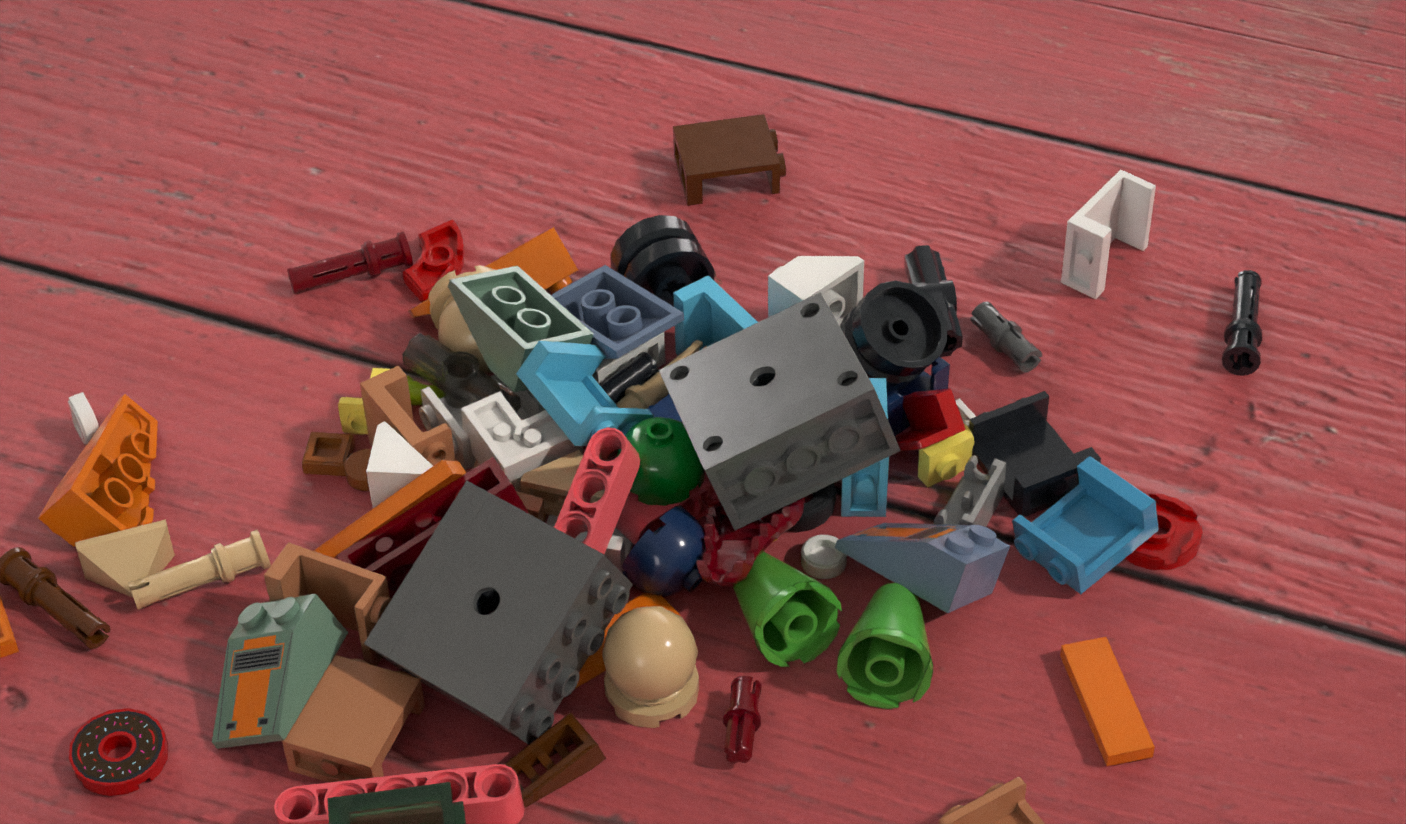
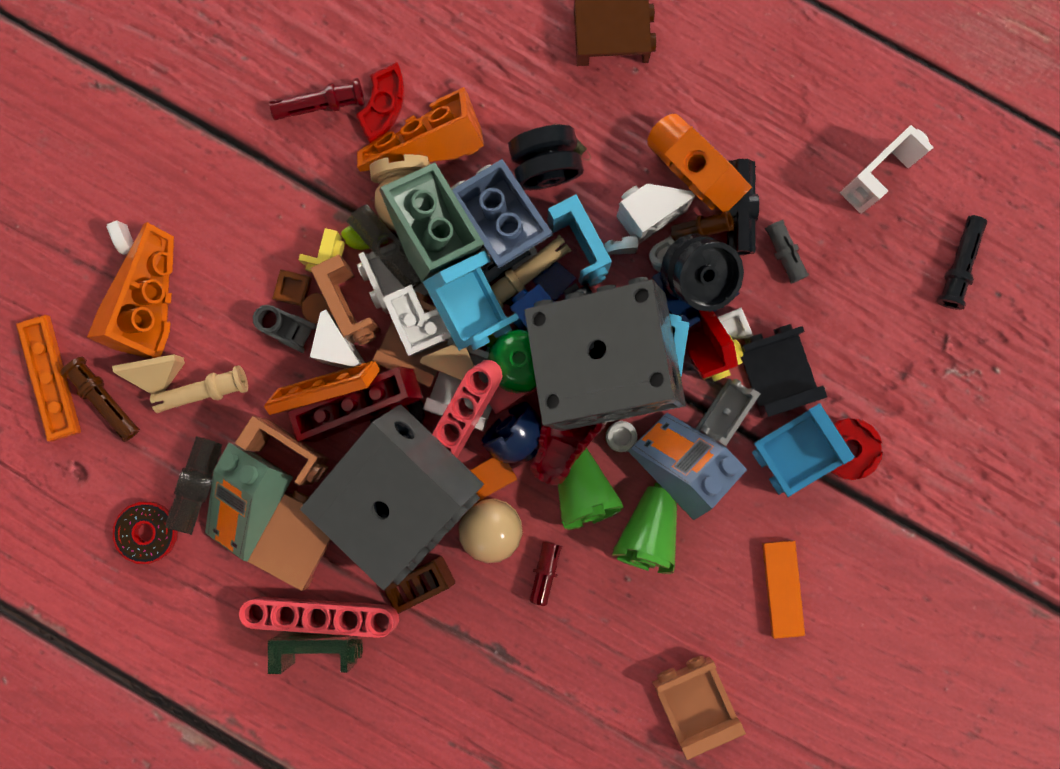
camera: 10 degrees right, 40 degrees up
(194, 675) = (193, 485): none -> clear smoke piece
(317, 486) = (289, 328): none -> dark grey piece
(874, 232) = (697, 163): none -> orange brick

